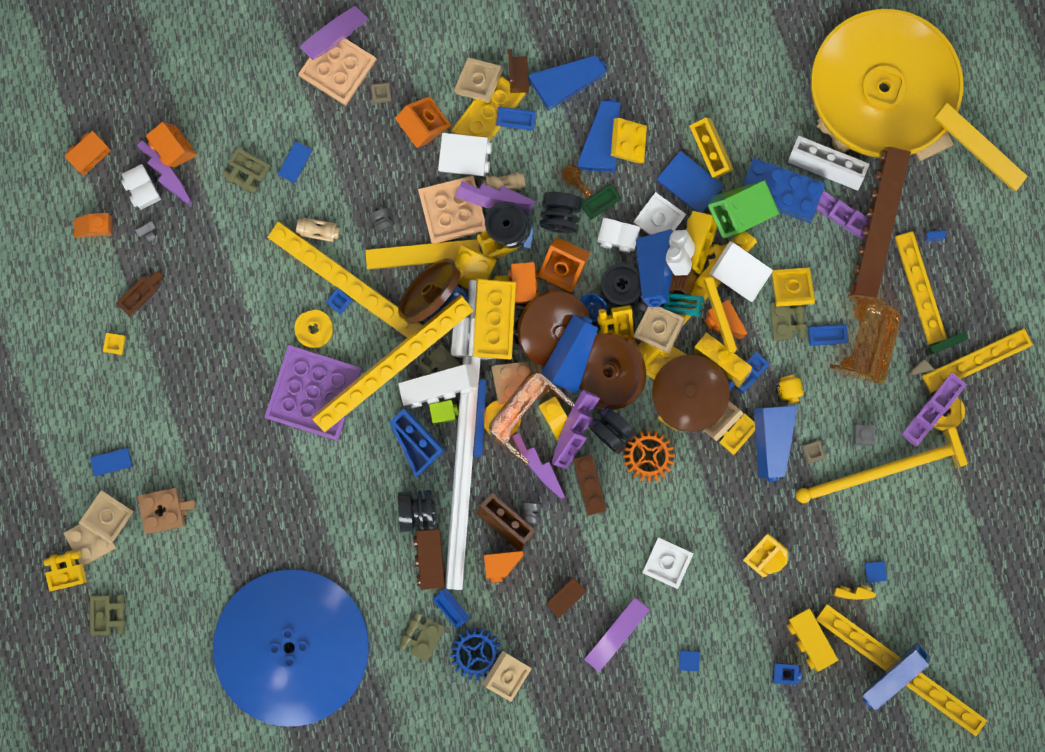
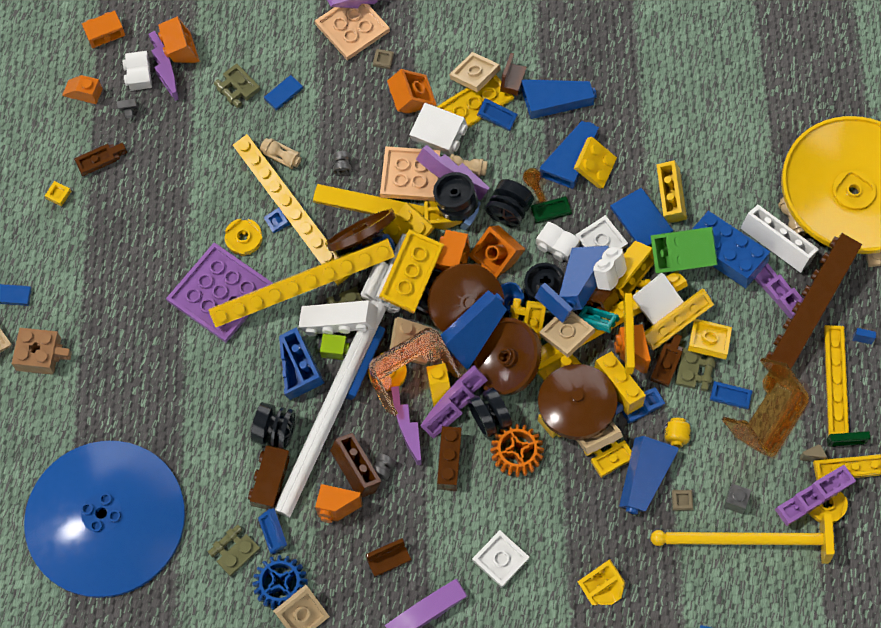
camera: 20 degrees right, 15 degrees down
(639, 306) = (553, 302): none -> blue tile
(758, 278) = (678, 319): none -> yellow tile
(760, 322) = (667, 362): none -> reddish brown hinge

